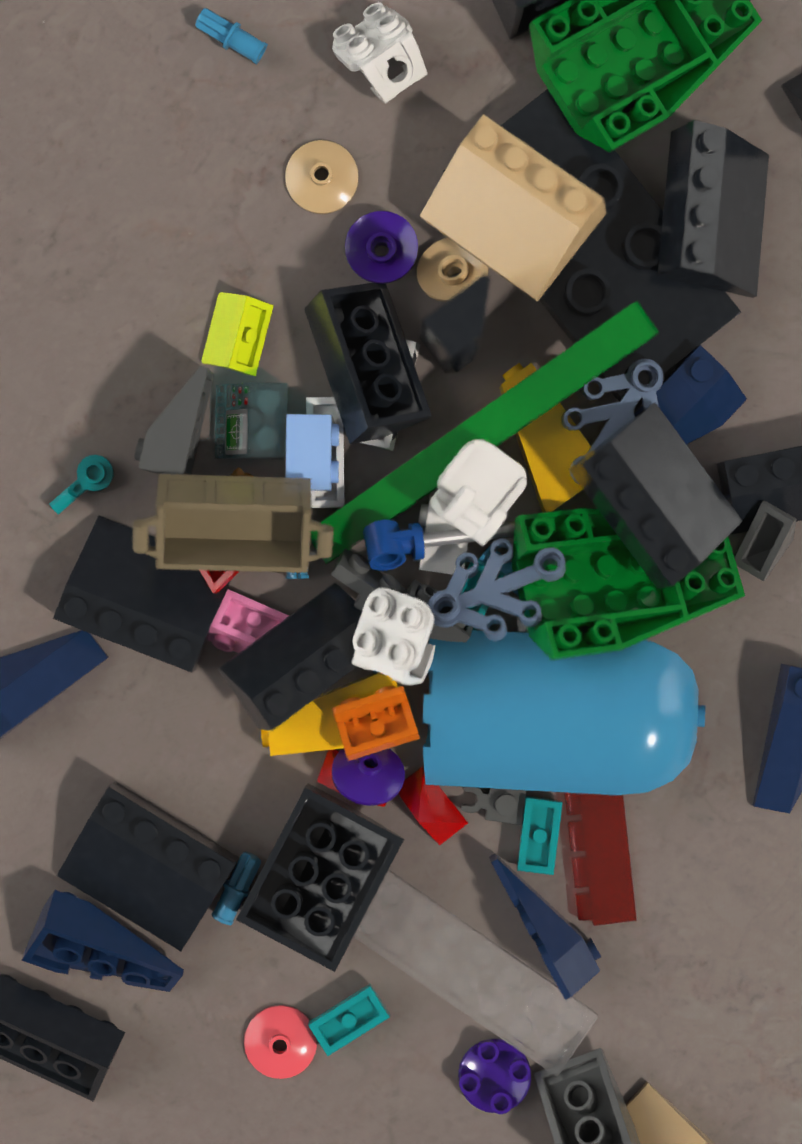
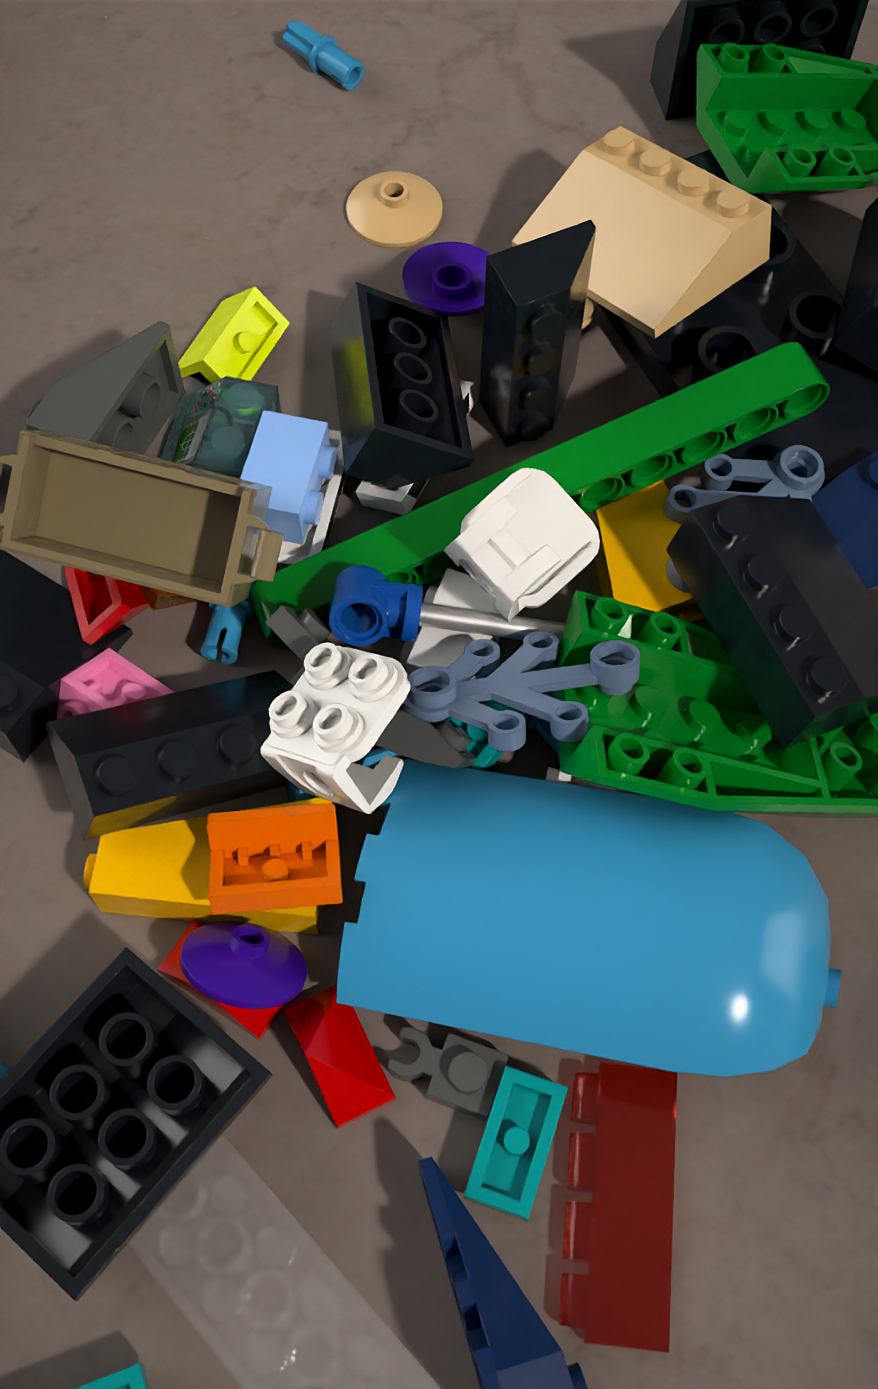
camera: 15 degrees right, 25 degrees down
(373, 43) = (490, 75): white piece -> none

